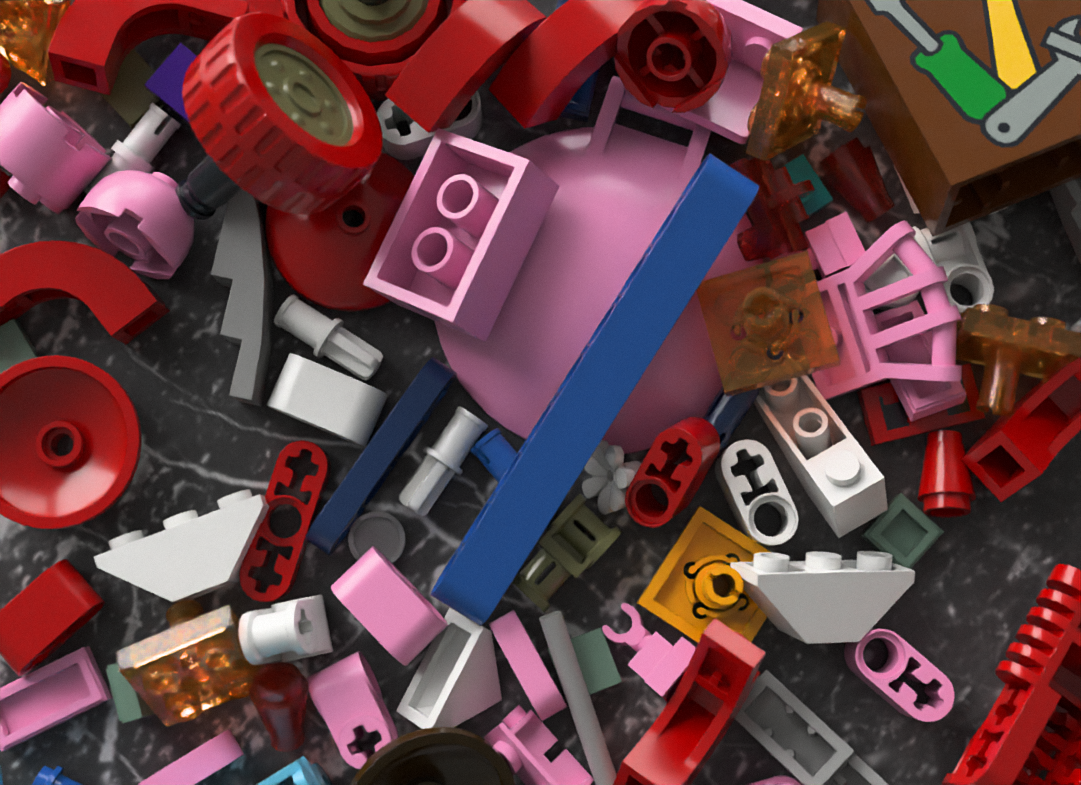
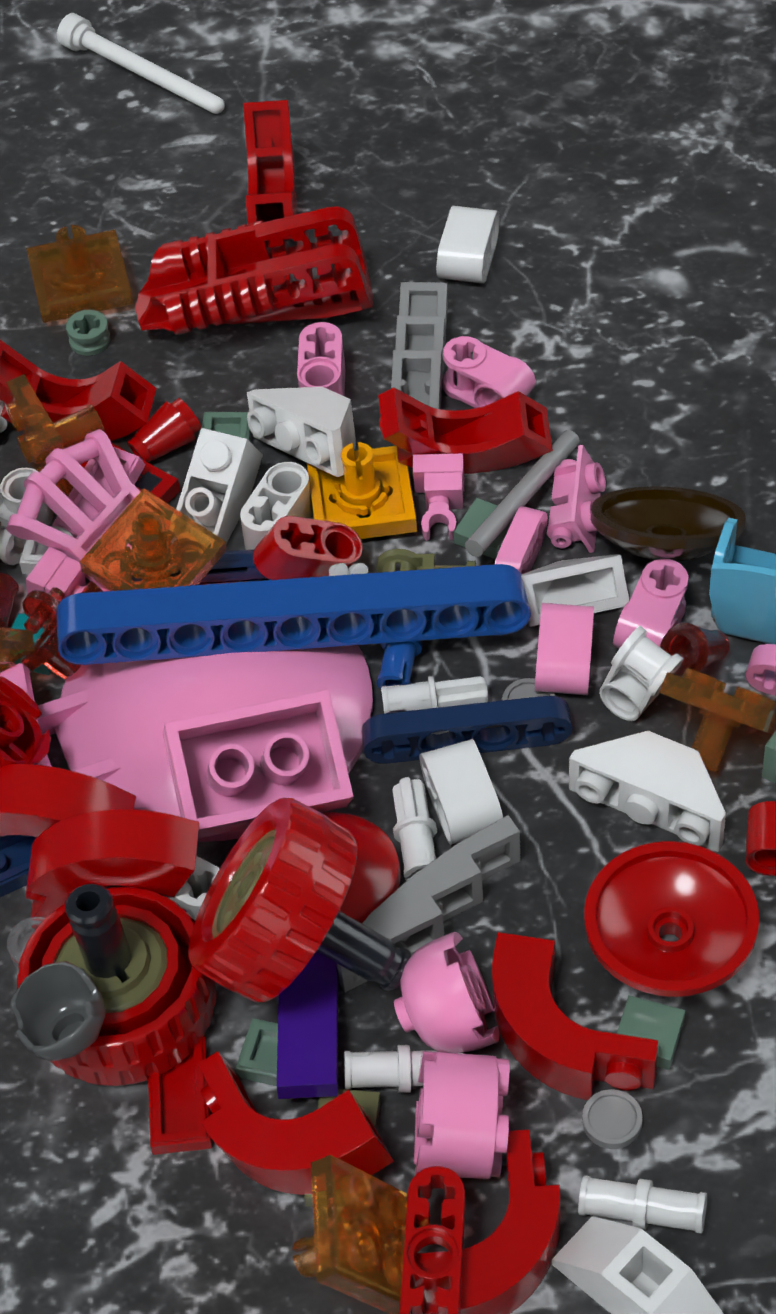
camera: 125 degrees left, 30 degrees down
(260, 558) = (531, 756): red beam -> none

